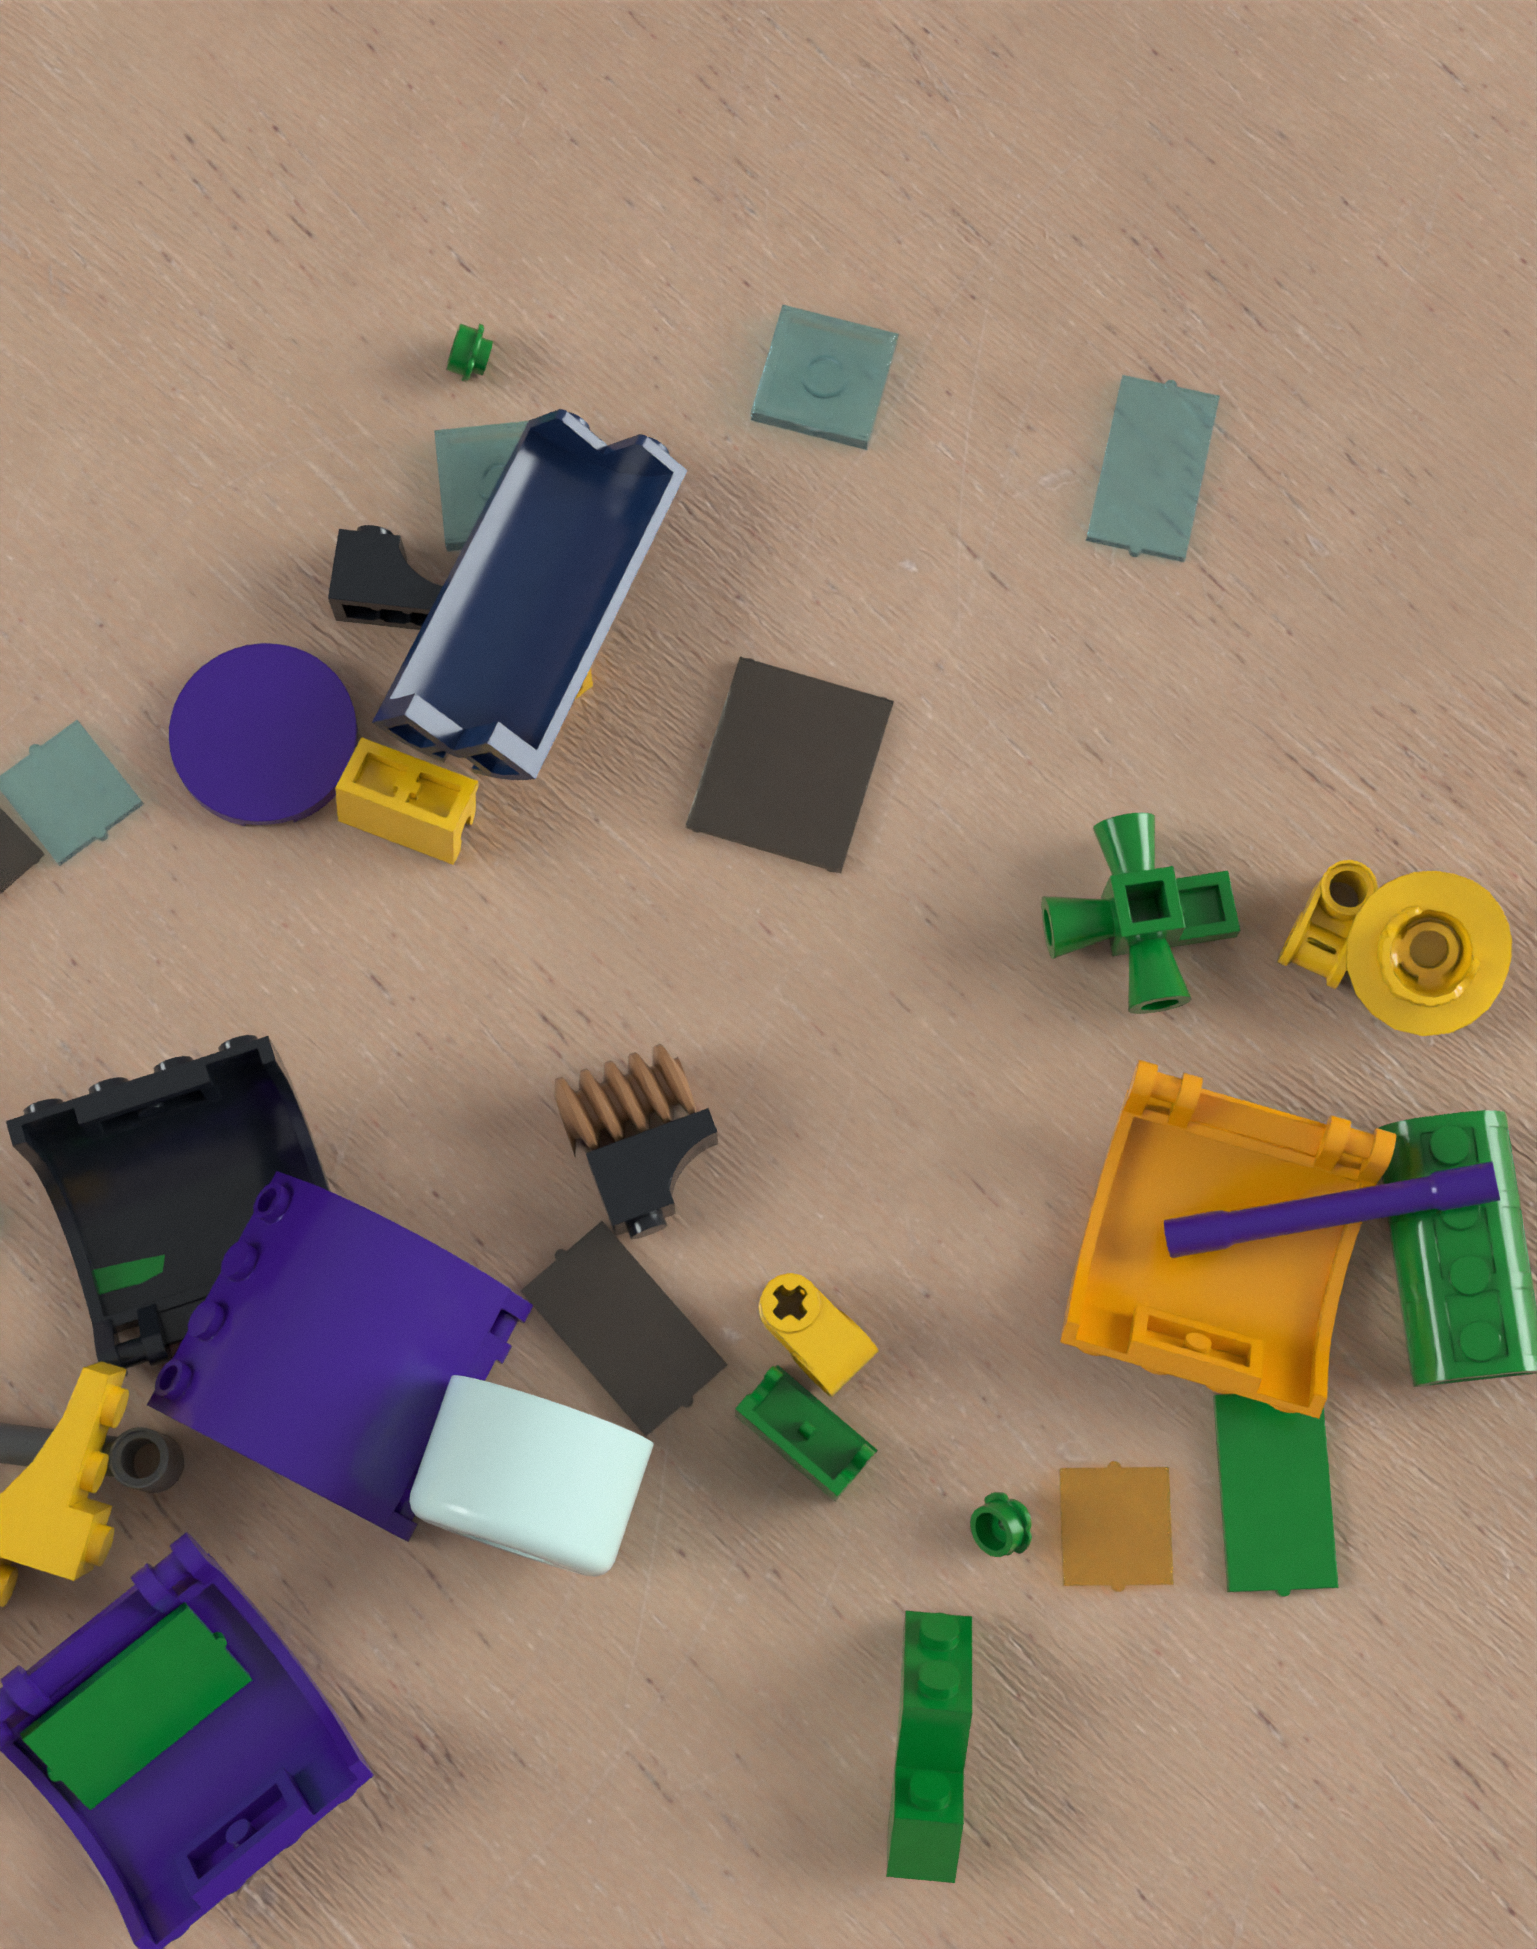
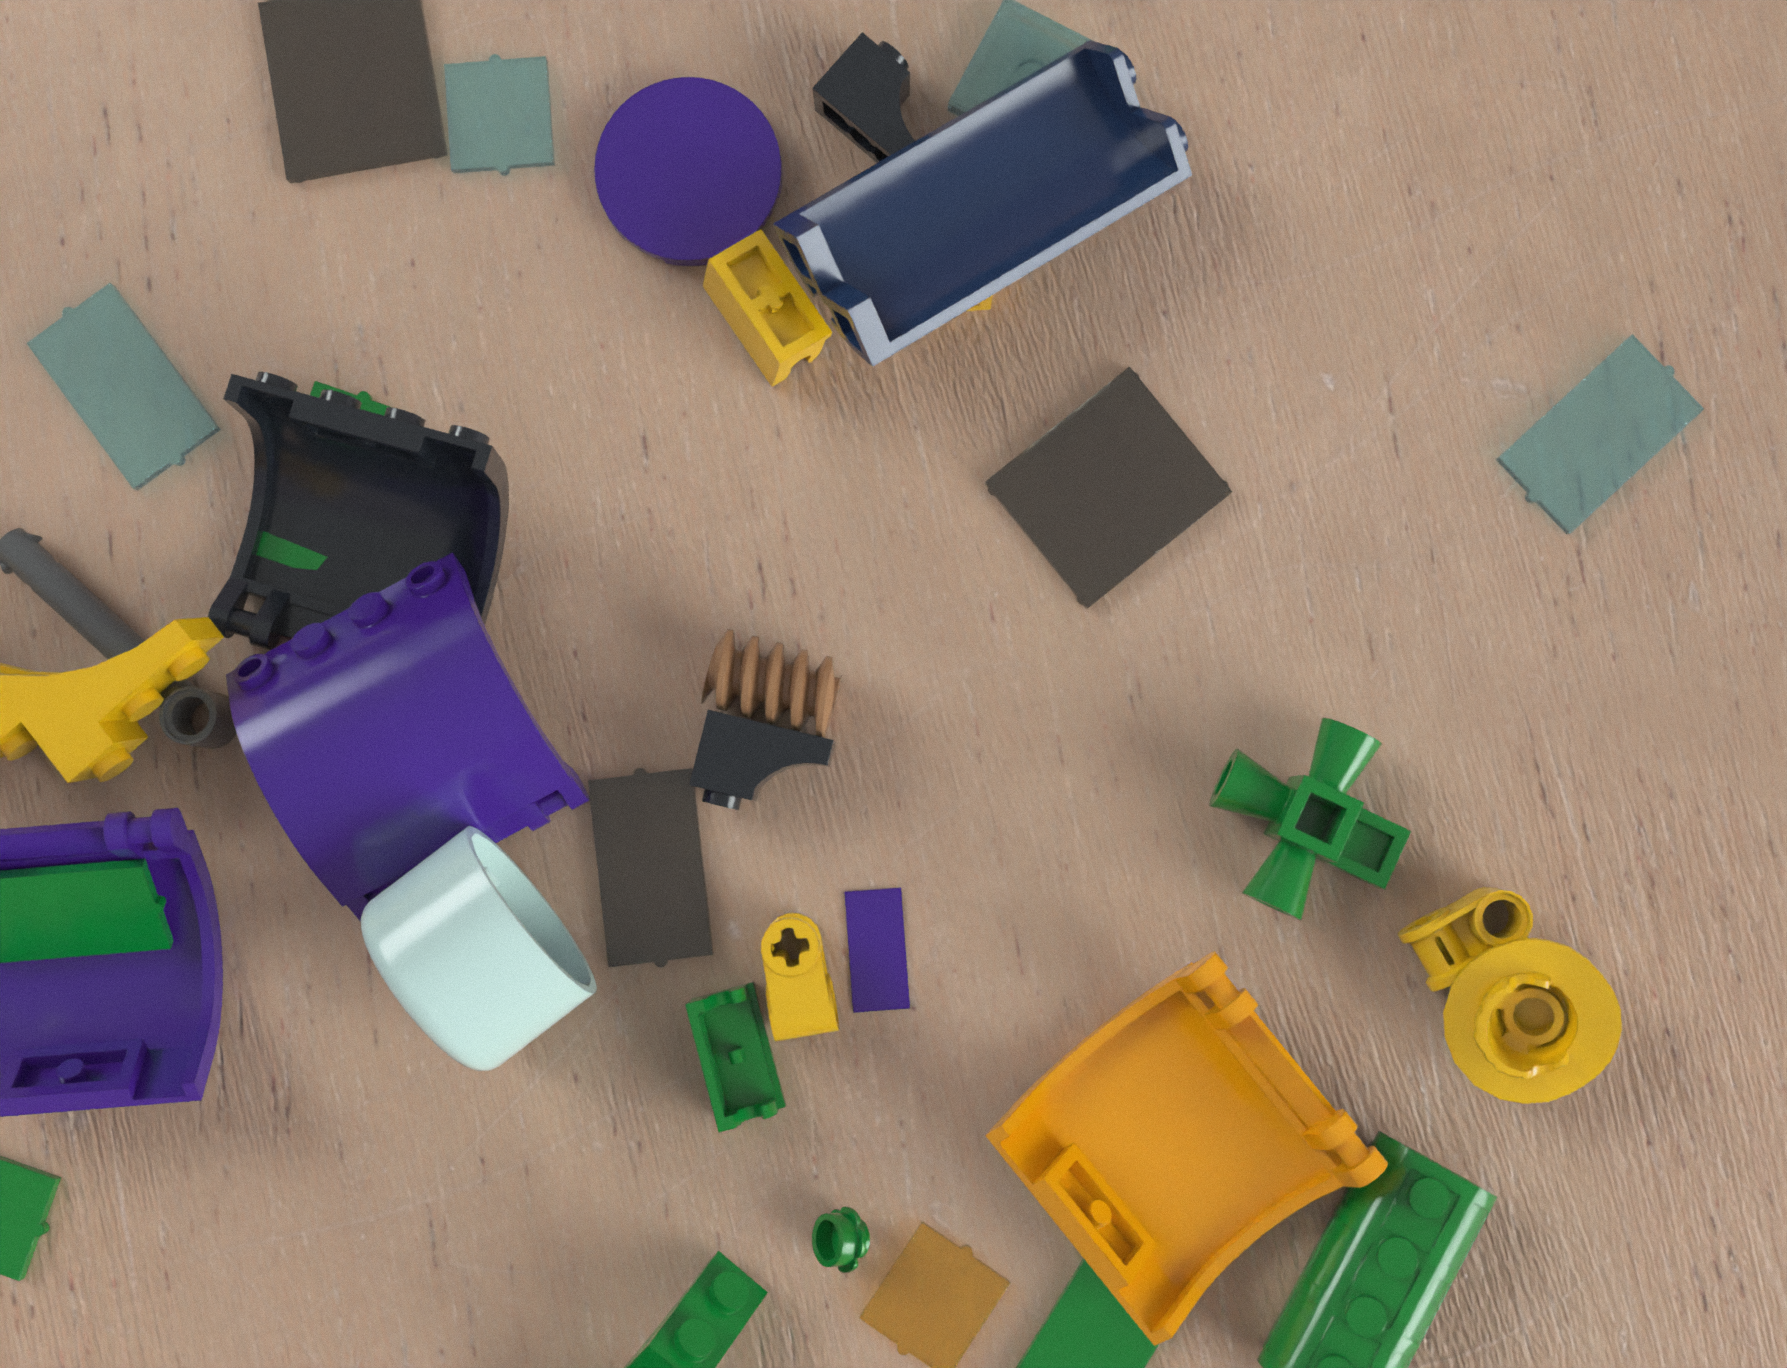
camera: 40 degrees right, 10 degrees up
(824, 377) = (1372, 166): clear light blue tile -> none
(863, 1268) = (877, 950): none -> dark purple sticker
(1439, 1191) = (1388, 1232): dark purple piece -> none

